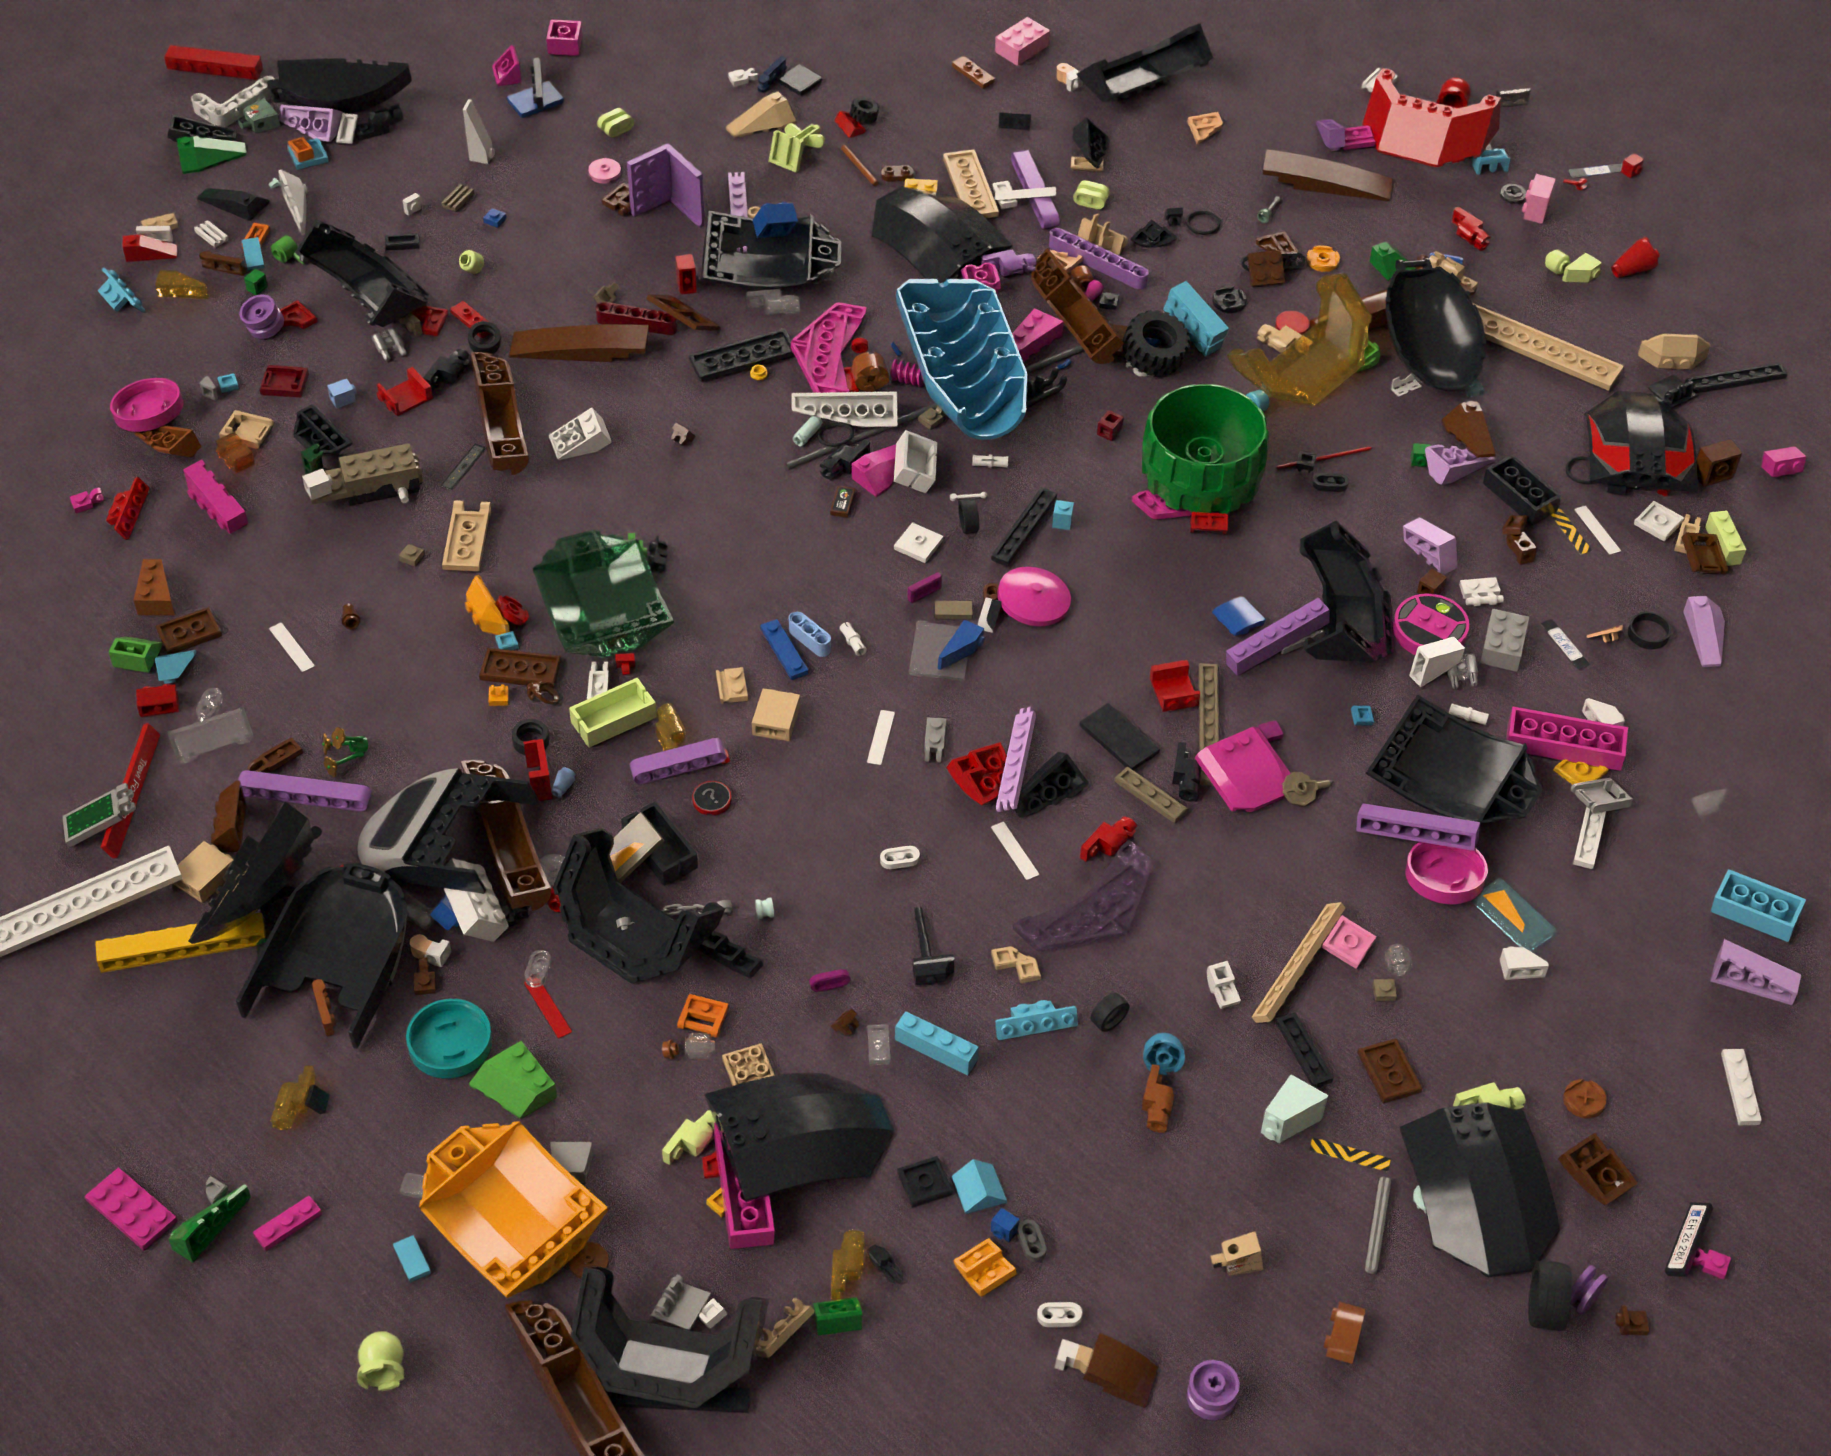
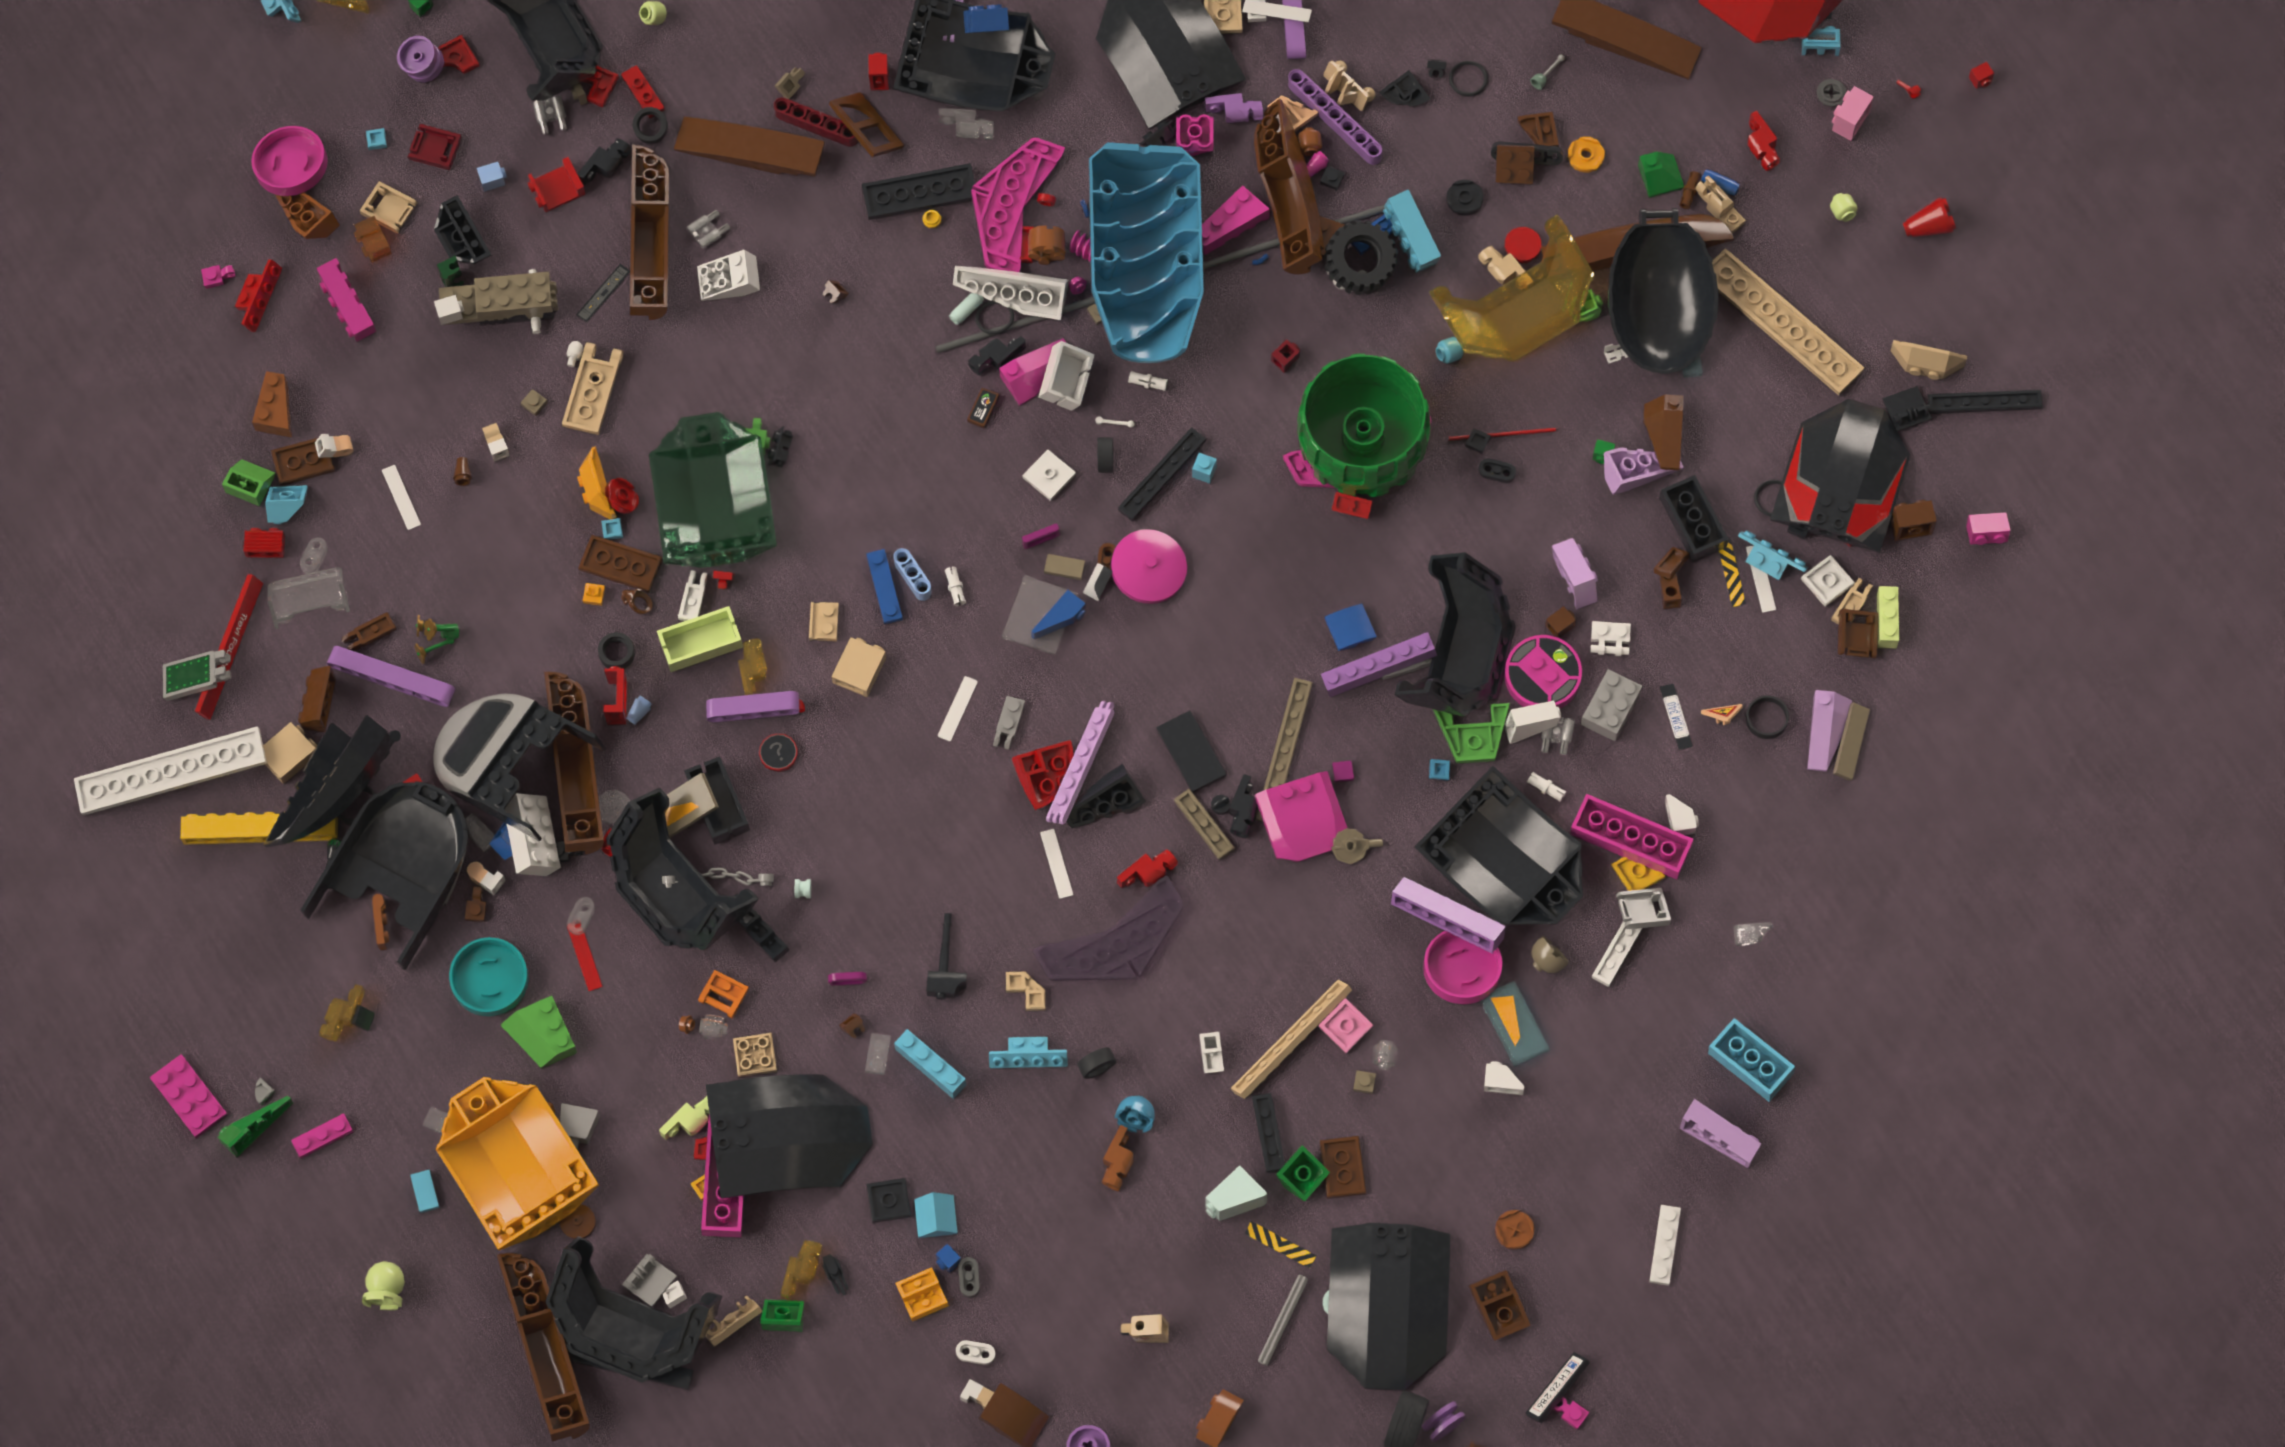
camera: 15 degrees right, 20 degrees up
(208, 389) = (354, 146): light grey slope -> none
(218, 611) = (333, 446): none -> leg
(379, 587) = (495, 442): none -> leg
(444, 511) = (574, 353): none -> white cylinder
(551, 408) = (704, 231): none -> clear piece
(897, 857) = (943, 854): white plate -> none
(905, 401) = (1077, 285): none -> dark pink plate
(1036, 388) = (1219, 296): black piece -> none
(1091, 194) = (1352, 20): yellowish green brick -> none
(1162, 775) = (1220, 804): none -> black tile
(1173, 686) = (1261, 702): red panel -> none
(1353, 1079) = (1302, 1174): none -> green slope
(1383, 688) = (1474, 741): none -> bright green wing
(1489, 1093) = (1423, 1216): yellowish green plate -> none
(1526, 849) = (1547, 956): none -> dark tan cylinder
(1582, 269) = (1868, 222): yellowish green slope -> none
(1595, 170) = (1921, 70): sticker -> none
(1600, 512) = (1769, 559): none -> medium azure bracket
(1734, 637) = (1851, 741): none -> dark tan tile

